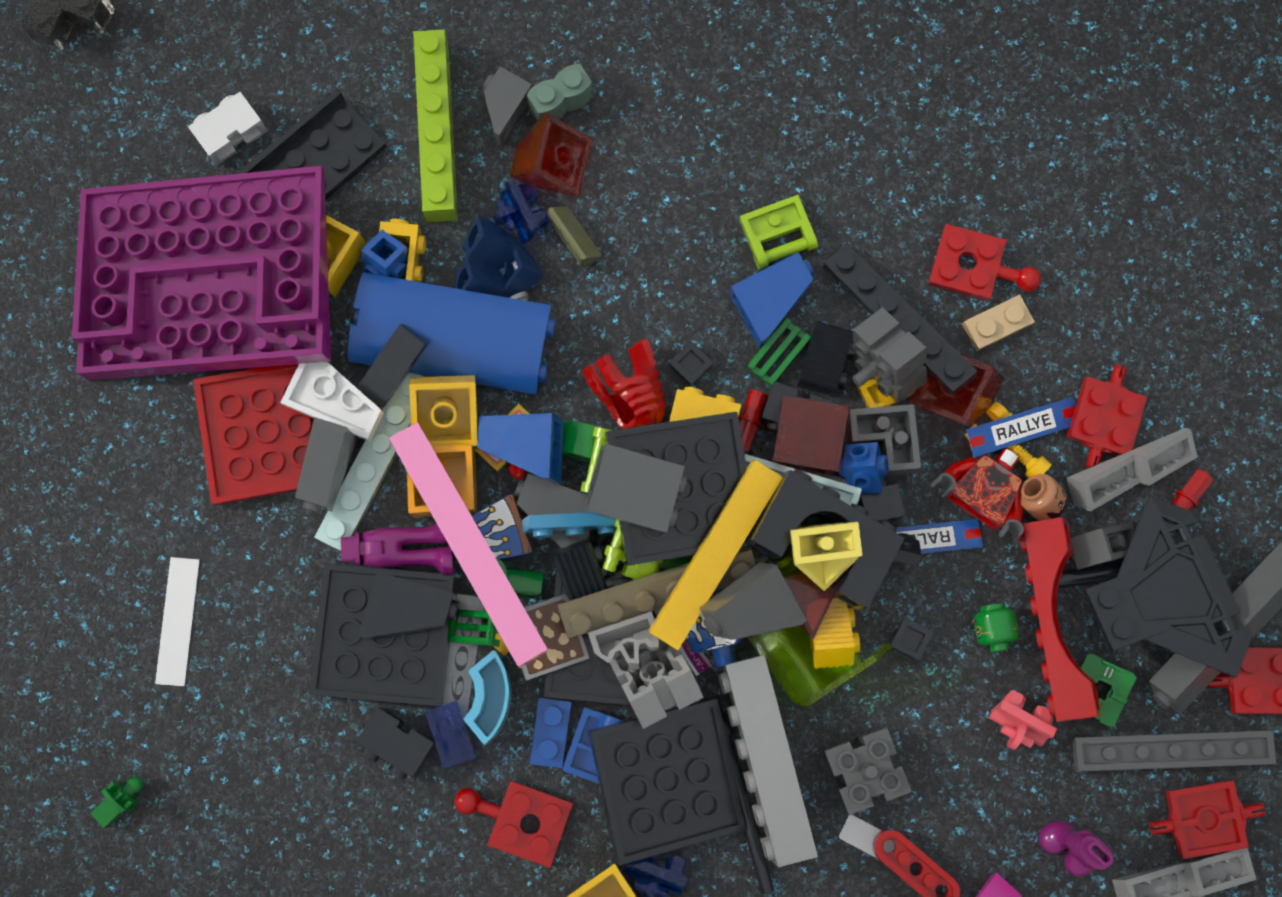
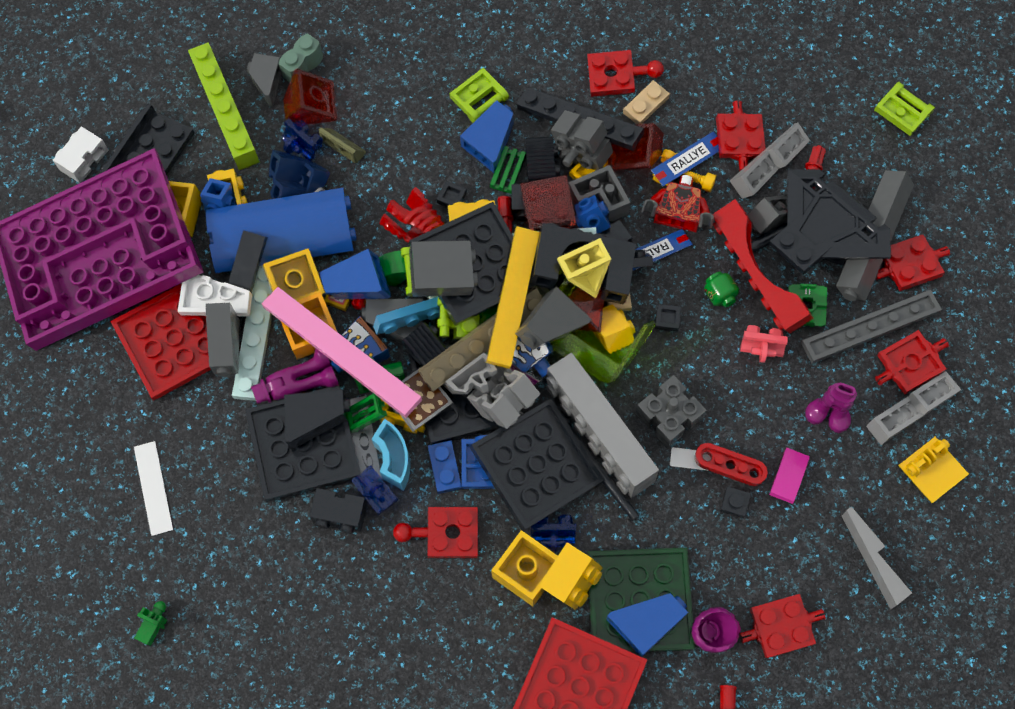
camera: 15 degrees left, 10 degrees down
(1043, 497) = (717, 195): nougat head -> none

